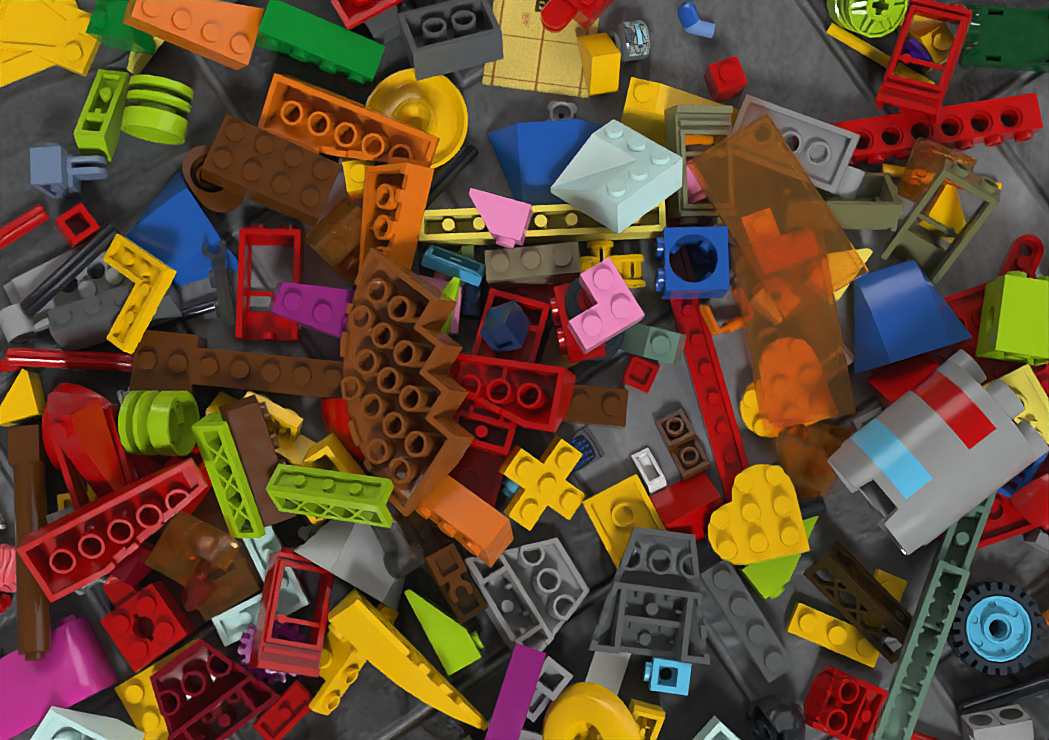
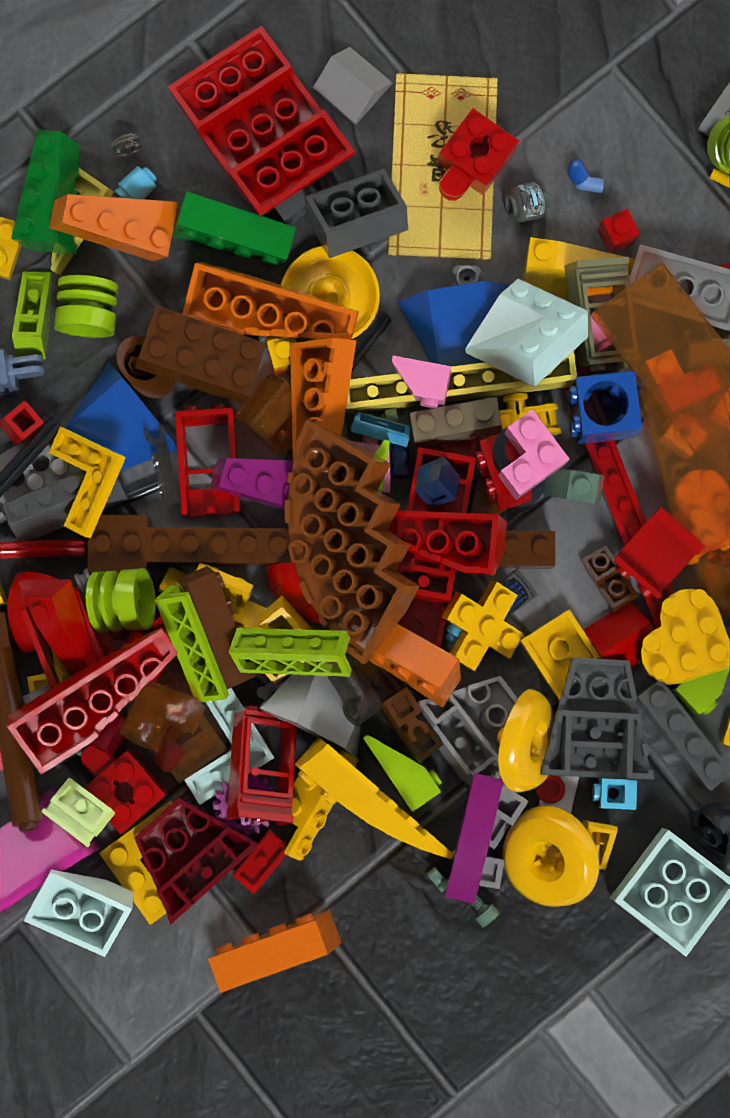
camera: 10 degrees left, 0 degrees up
(90, 646) = (78, 812): none -> yellowish green plate
(574, 613) = (525, 742): none -> yellow hat
(599, 664) = (551, 790): none -> red tile
(600, 63) = (498, 225): yellow slope -> none
(640, 374) = (563, 516): red tile -> none
(649, 471) = (580, 606): white piece -> none
(727, 327) = (641, 464): orange piece -> none
(735, 422) = (658, 553): none -> red panel

